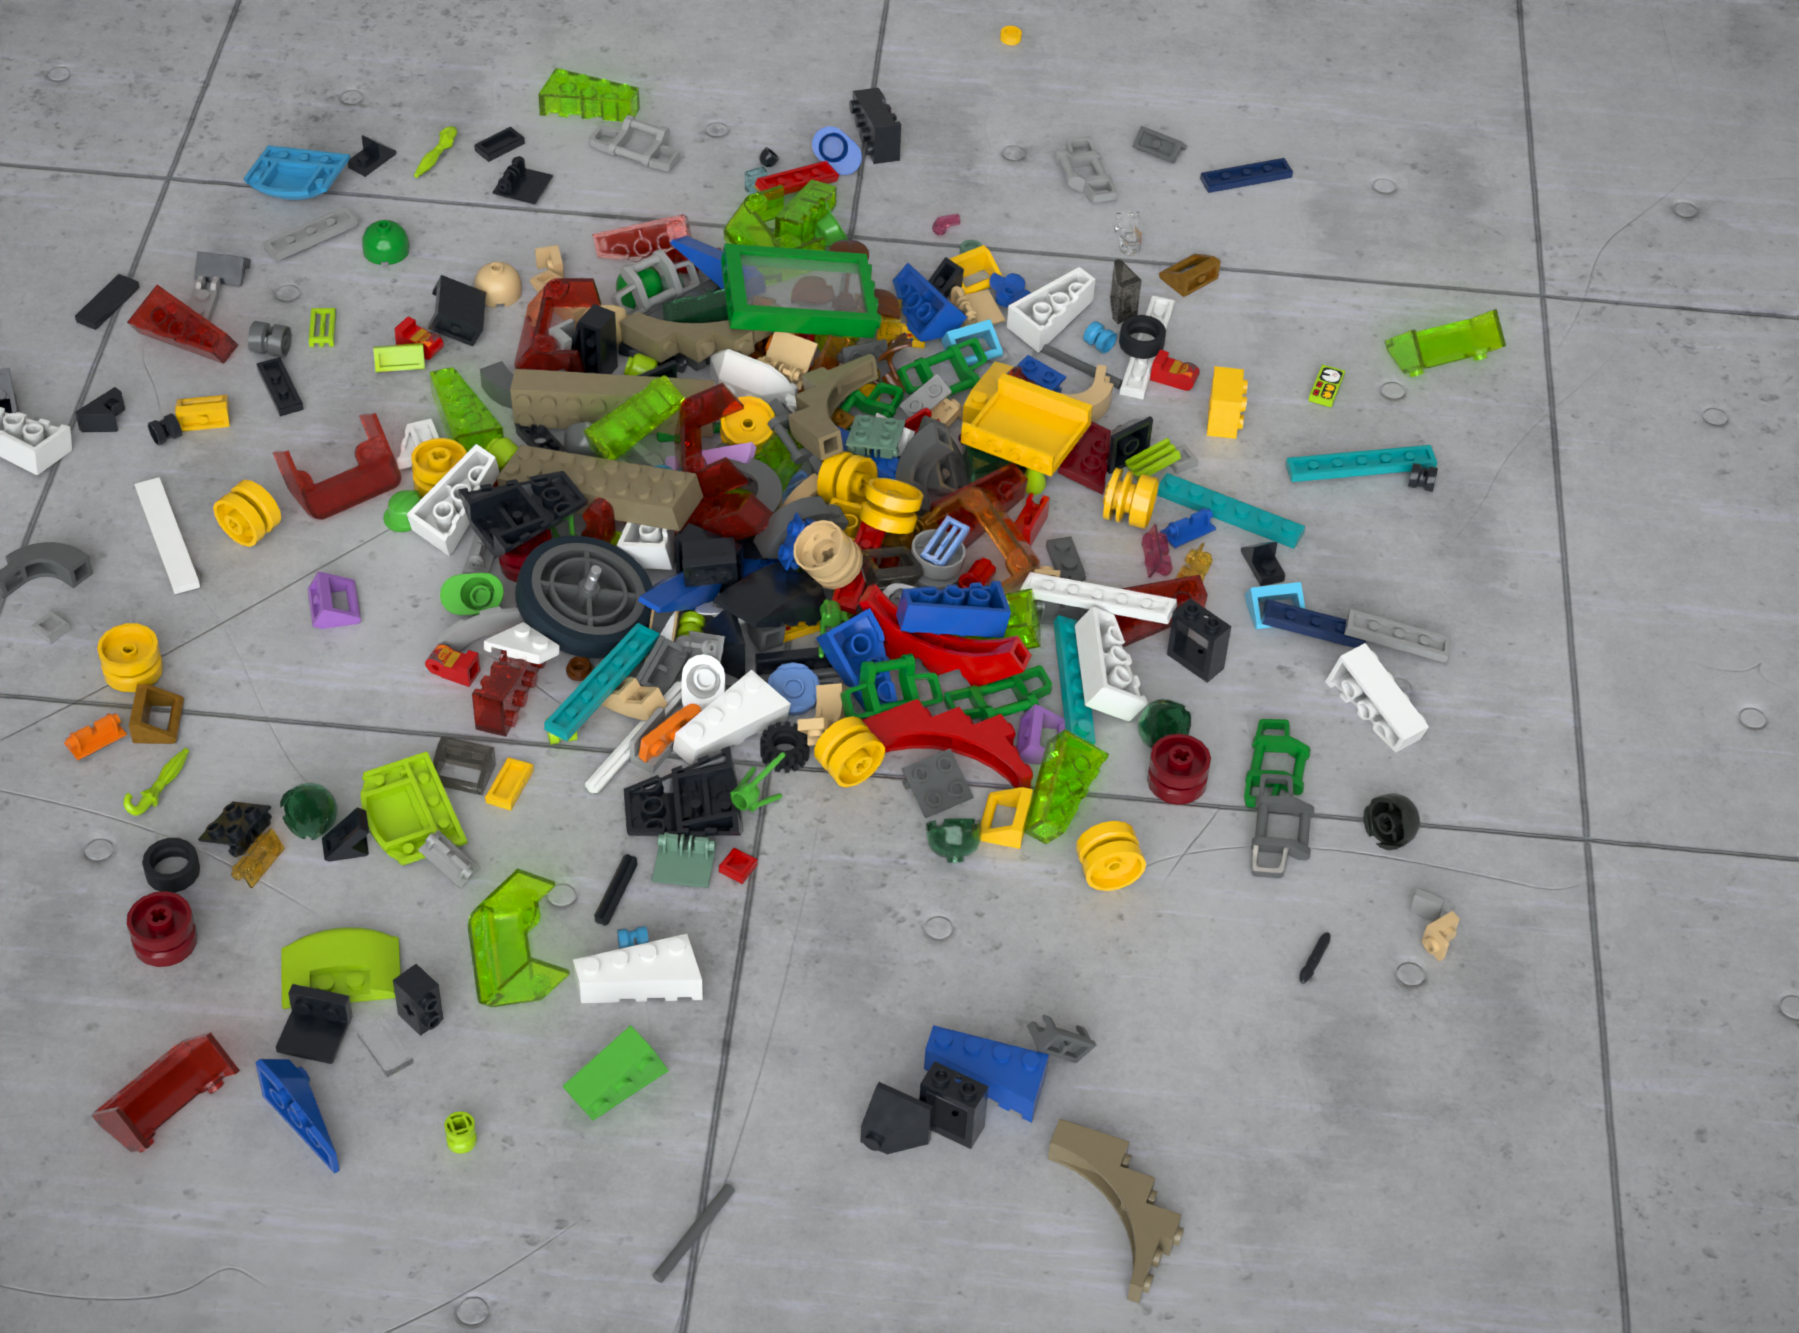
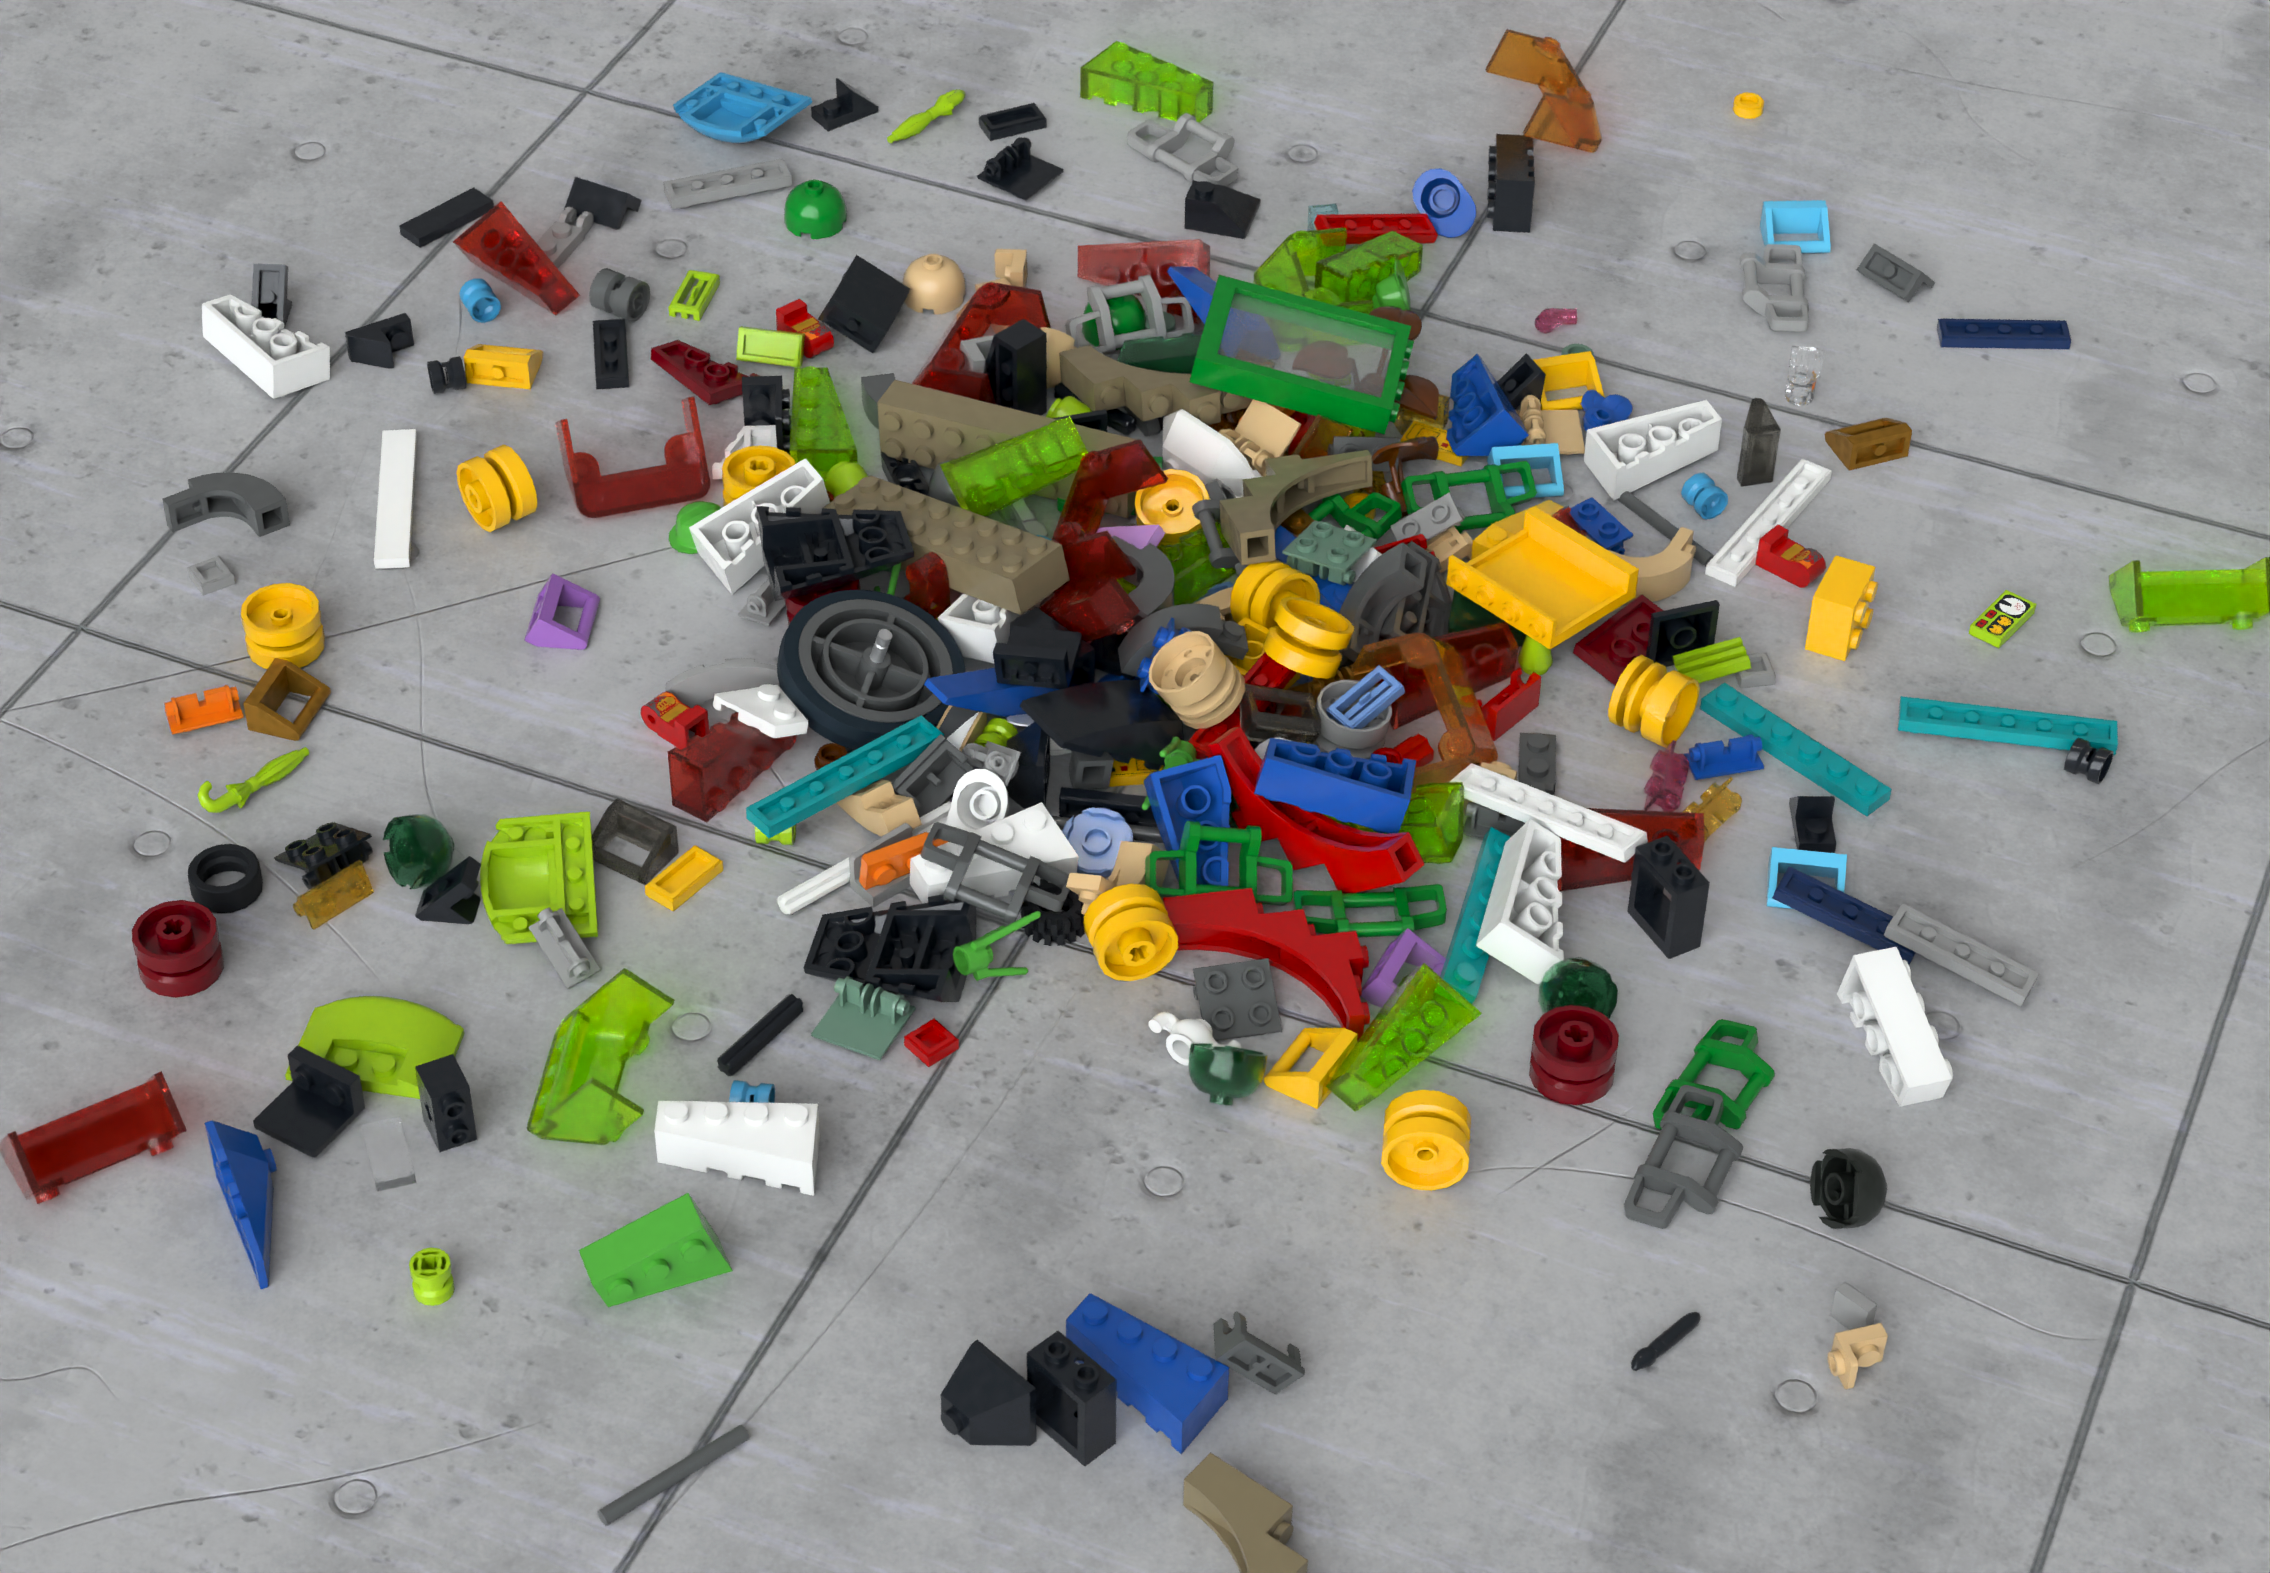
camera: 20 degrees right, 5 degrees down
(164, 364) = (480, 300): none -> dark azure wheel
(361, 391) = (698, 373): none -> dark red wing
(423, 403) = (765, 405): none -> black bracket
(471, 593) = (731, 637): bright green piece -> none
(679, 186) = (1219, 210): none -> black slope
(717, 731) = (974, 845): none -> dark grey bar
(768, 157) = (1352, 197): black hinge -> none
(898, 62) = (1566, 108): none -> clear orange windscreen
(914, 818) = (1183, 1033): none -> white piece
(1080, 115) = (1796, 218): none -> medium azure tile
(1142, 324) = (1761, 489): black tyre -> none

